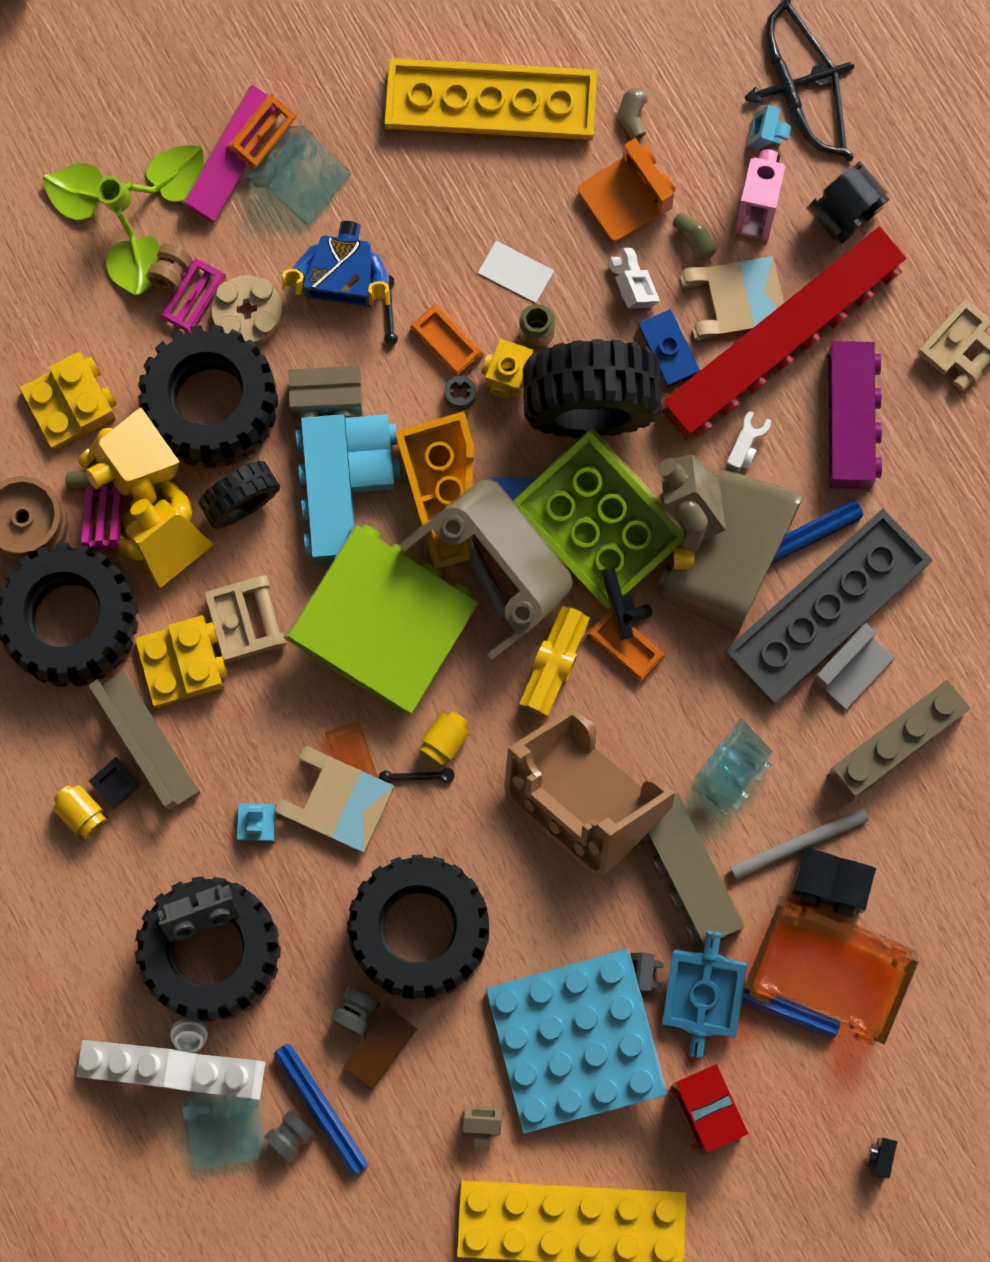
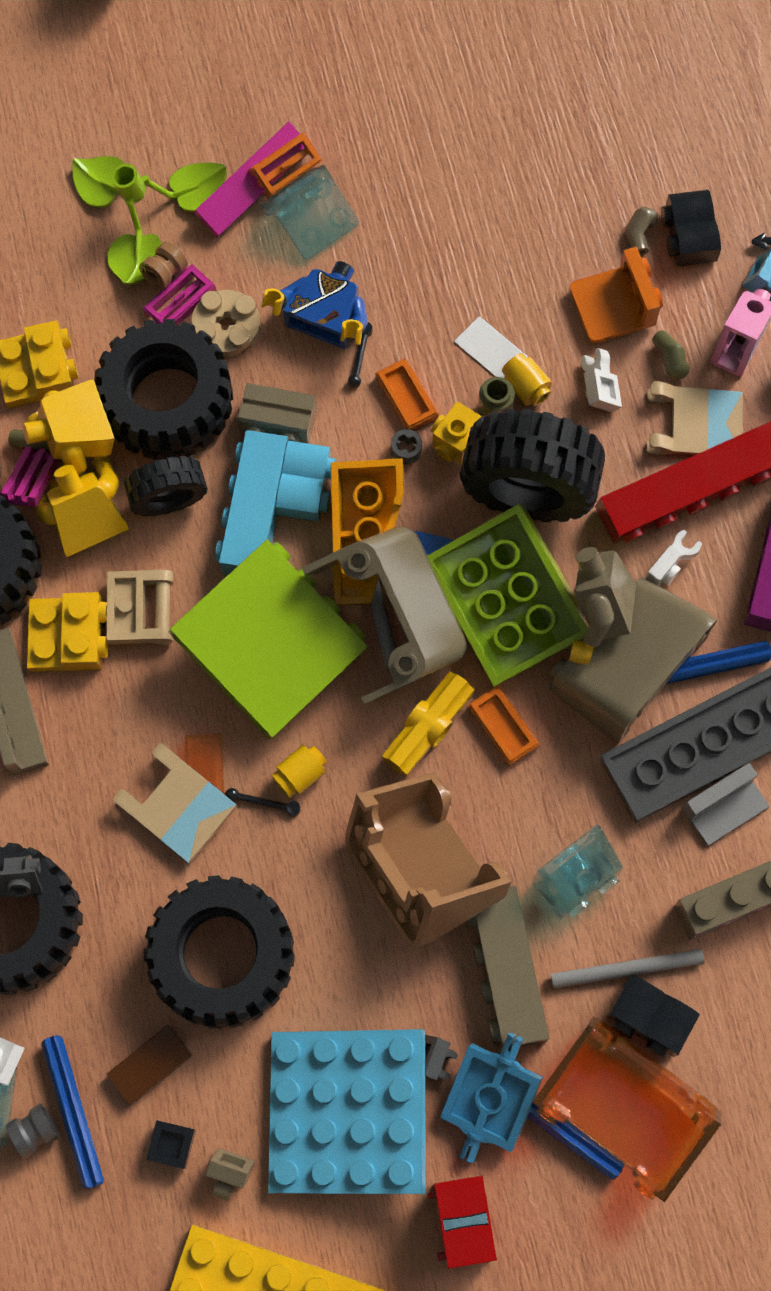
camera: 15 degrees right, 5 degrees down
(256, 822) = (93, 807): medium azure tile -> none
(359, 1003) = (140, 1013): dark grey wheel -> none
(421, 1114) = (171, 1144): none -> black plate
(491, 99) = (509, 186): yellow plate -> none
(561, 297) = (527, 380): none -> yellow brick
(622, 607) = (509, 688): black hose -> none
(670, 347) = (621, 452): blue plate -> none
(683, 99) = (691, 227): none -> black brick

